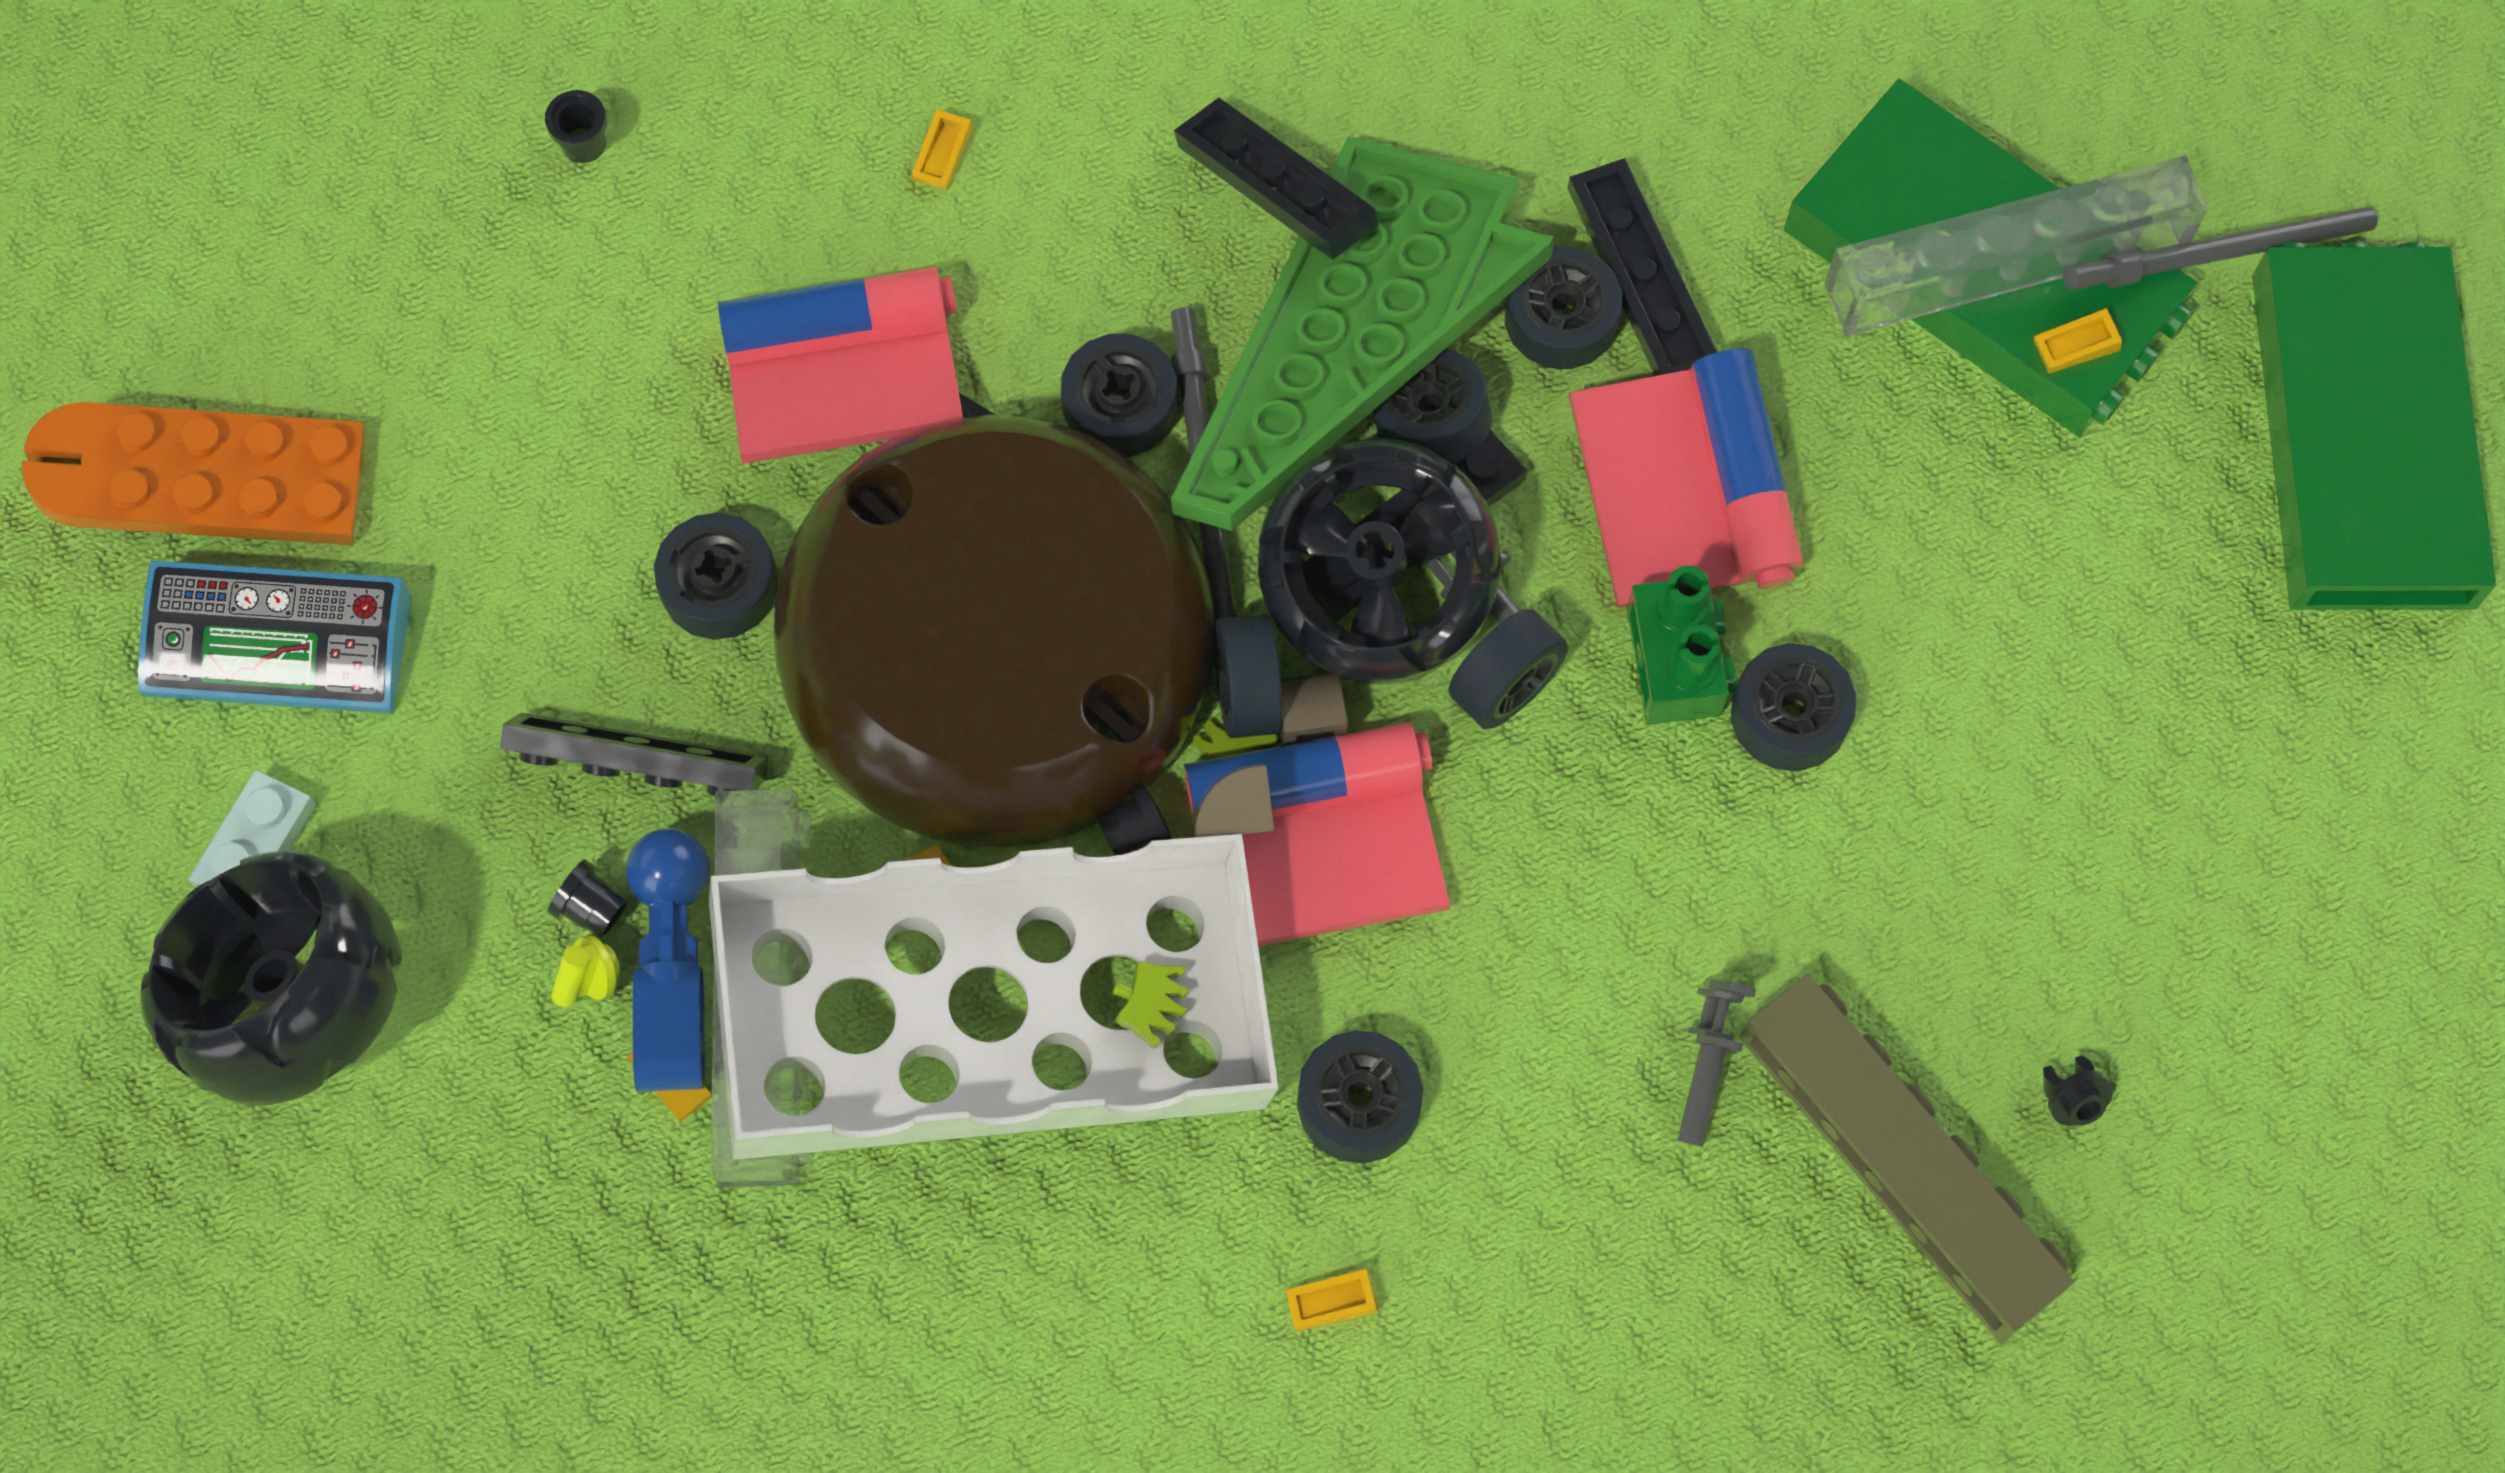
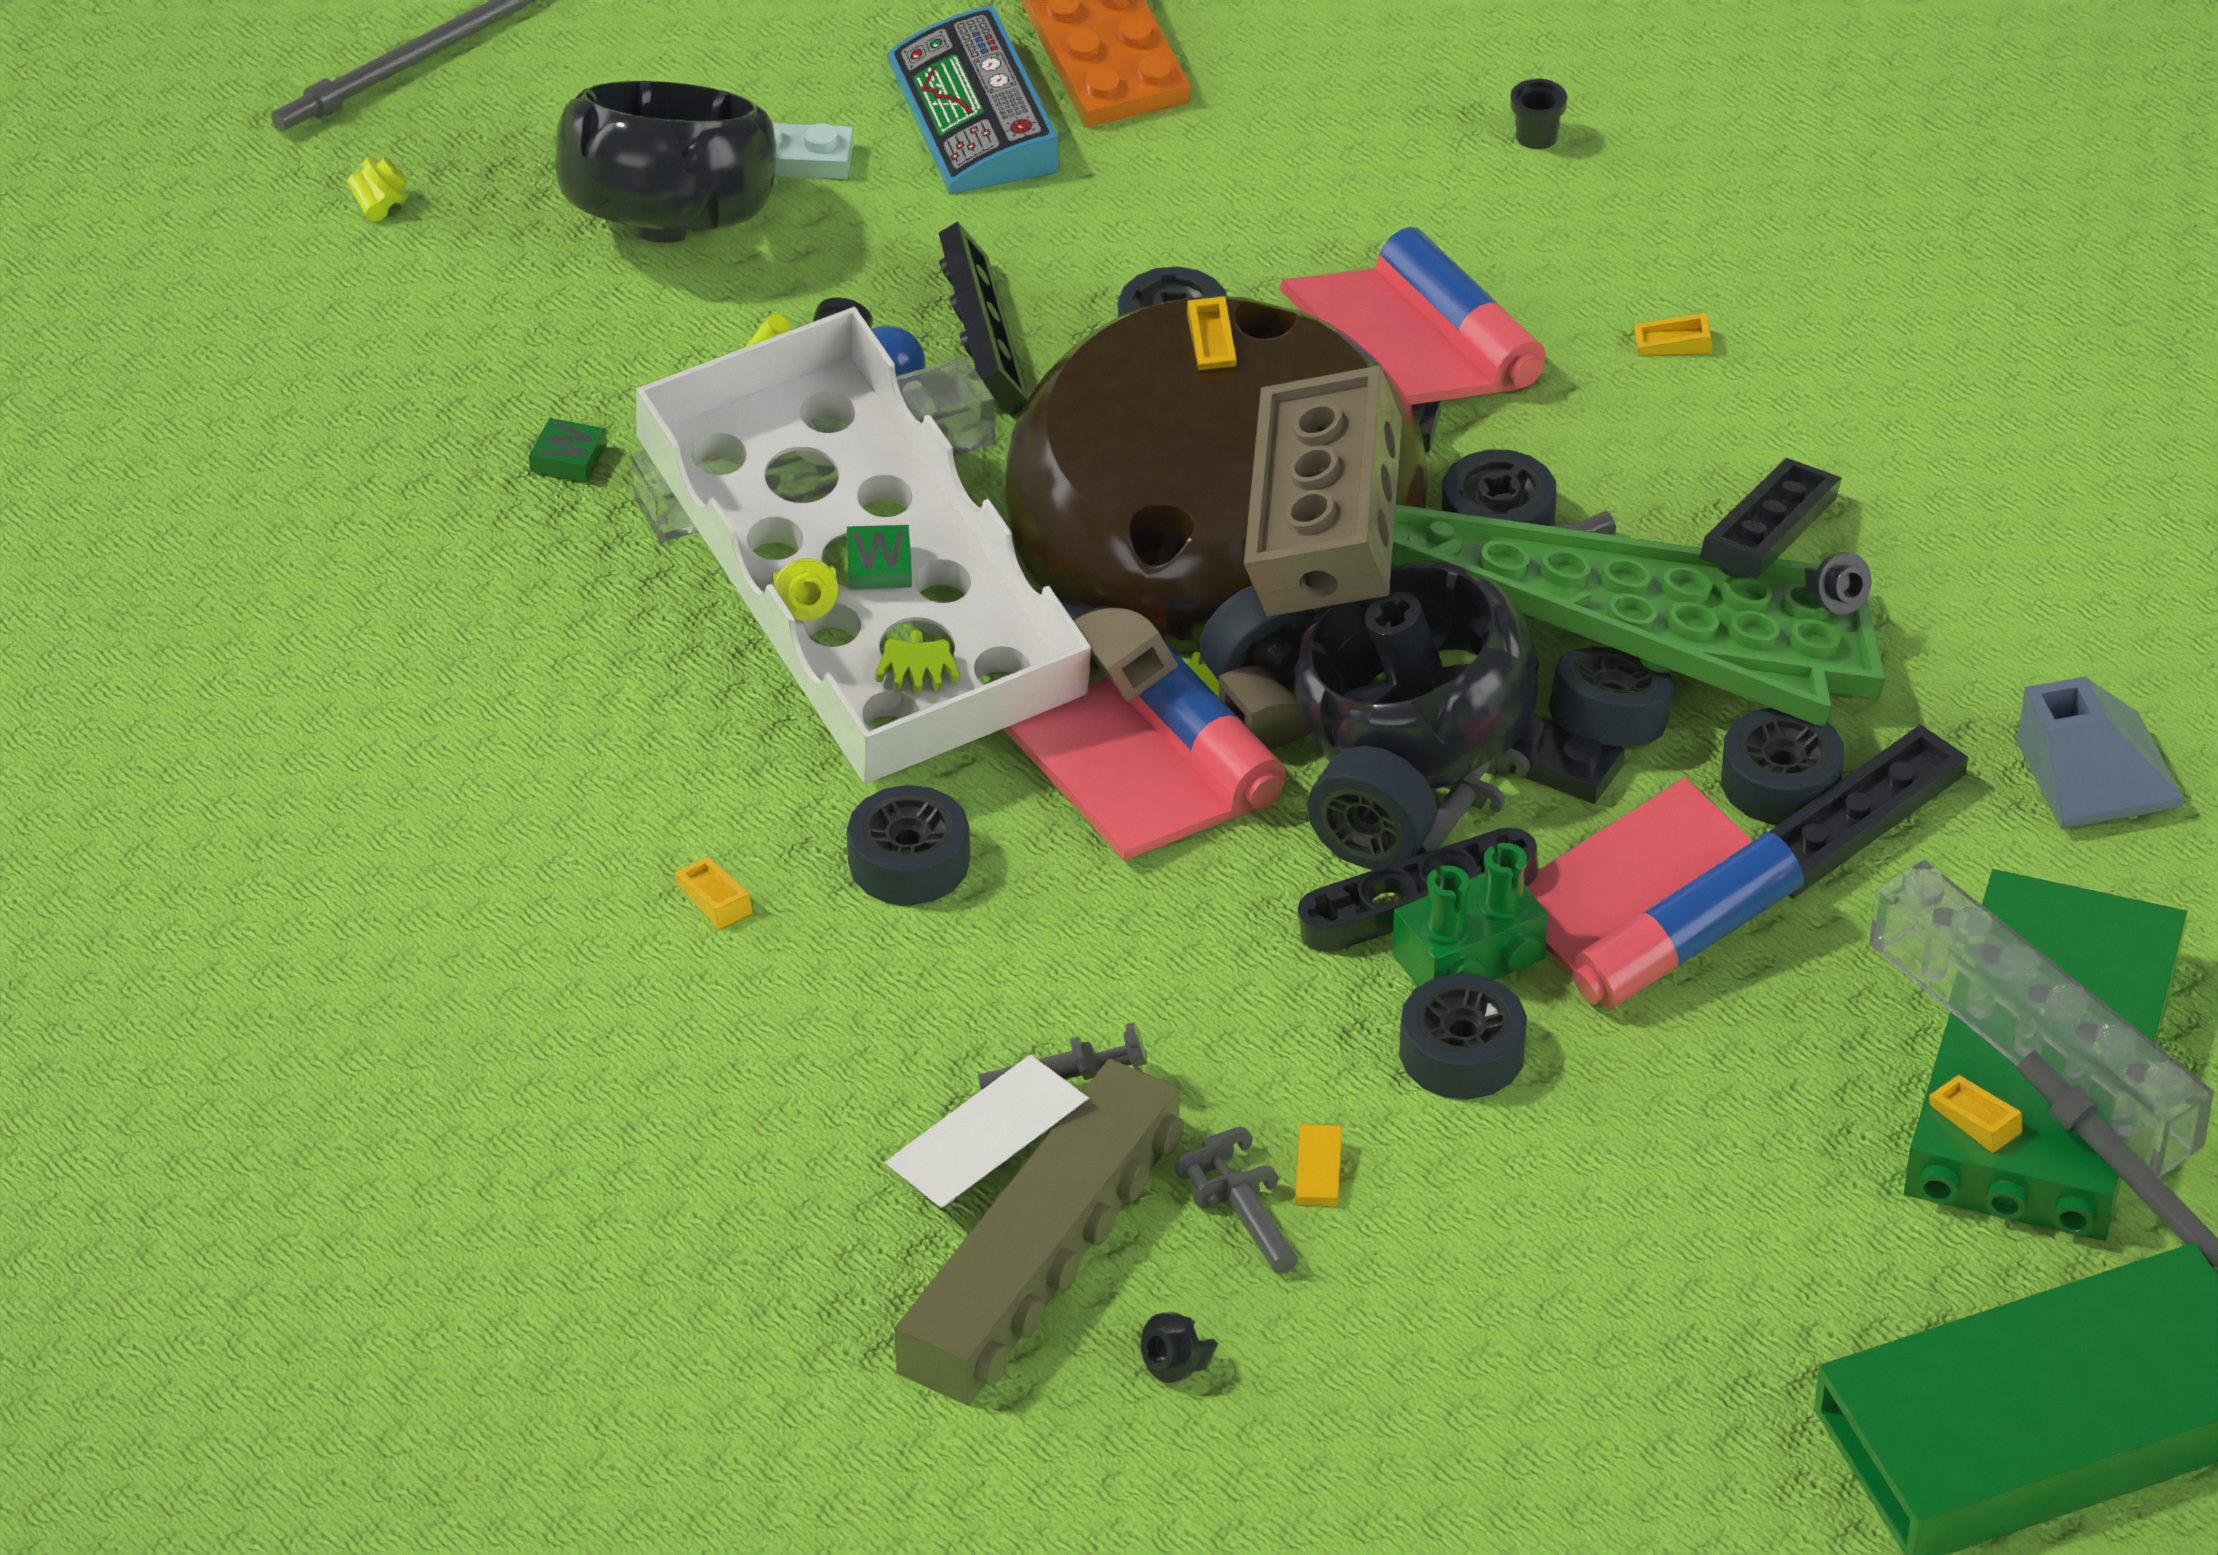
camera: 70 degrees right, 25 degrees down
(97, 1295) = (378, 187): none -> neon yellow plate
(626, 1231) = (567, 450): none -> green tile
(889, 553) = (1211, 333): none -> yellow piece
(1009, 983) = (879, 556): none -> green tile
(1025, 1070) = (807, 588): none -> neon yellow plate
(1189, 498) = (1323, 491): none -> dark tan brick
(1393, 161) = (1839, 582): none -> black plate
(1602, 670) = (1406, 878): none -> black beam
(1665, 65) = (2092, 754): none -> sand blue slope
(1773, 1161) = (986, 1131): none -> white sticker
(1890, 889) = (1318, 1165): none -> yellow piece
(1909, 969) = (1239, 1190): none -> dark grey piece

